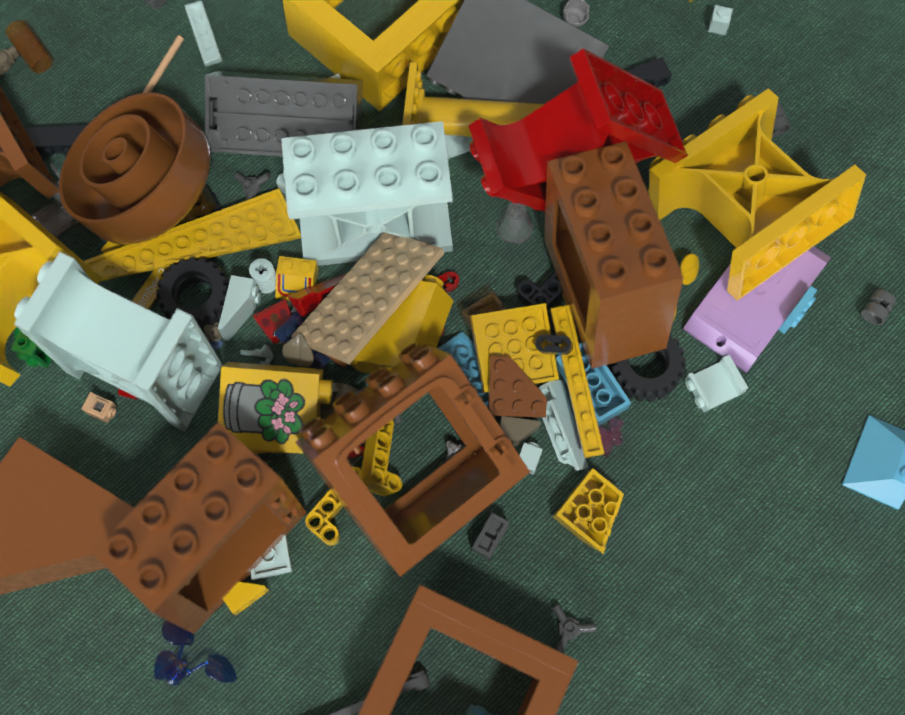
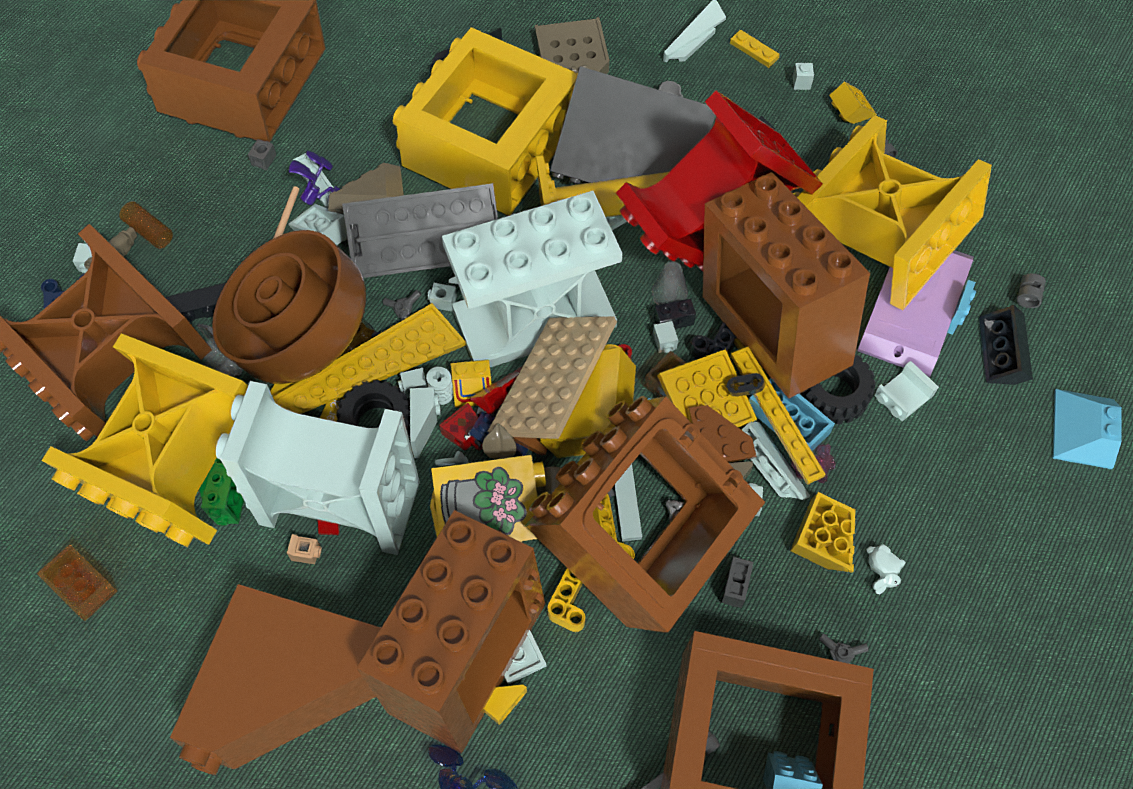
camera: 15 degrees left, 10 degrees down
(189, 84) = (323, 221): none -> light aqua slope
(193, 44) = (312, 192): none -> dark purple plant
(239, 265) = (412, 379): none -> light aqua brick
(253, 55) = (374, 184): none -> dark tan slope
(411, 435) = (628, 507): none -> light aqua tile
(495, 274) = (665, 337): none -> light aqua brick
(510, 252) = (679, 312): none -> black brick
(639, 554) = (886, 565): none -> light aqua animal
(761, 61) = (851, 104): none -> yellow slope
(832, 360) = (1005, 346): none -> black slope

